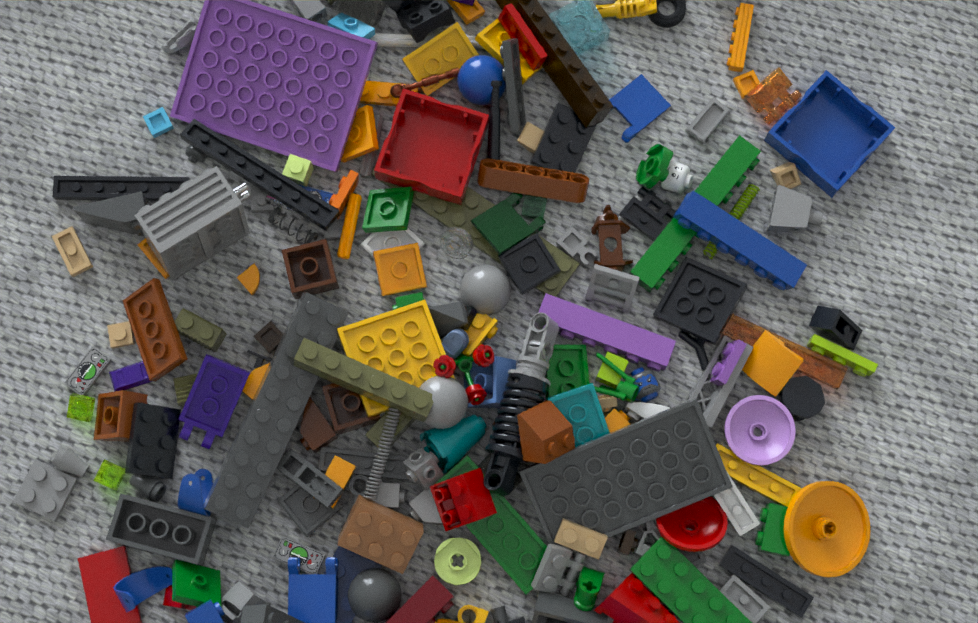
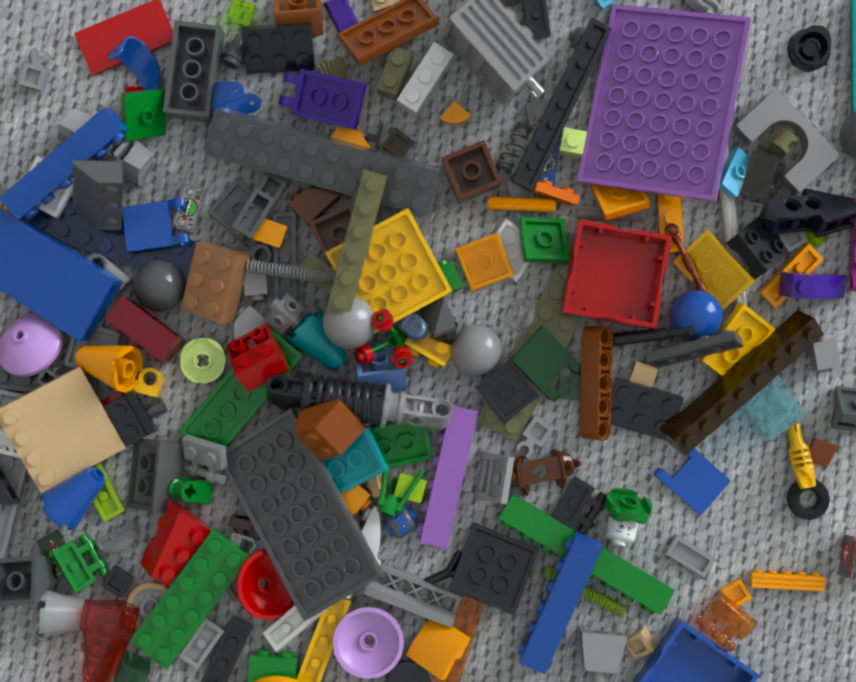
camera: 80 degrees right, 10 degrees up
(211, 301) = (425, 79): none -> white brick
(528, 44) = (753, 348): red plate -> none
(580, 538) = (236, 477): tan plate -> none
(723, 369) = (440, 606): medium lavender plate -> none

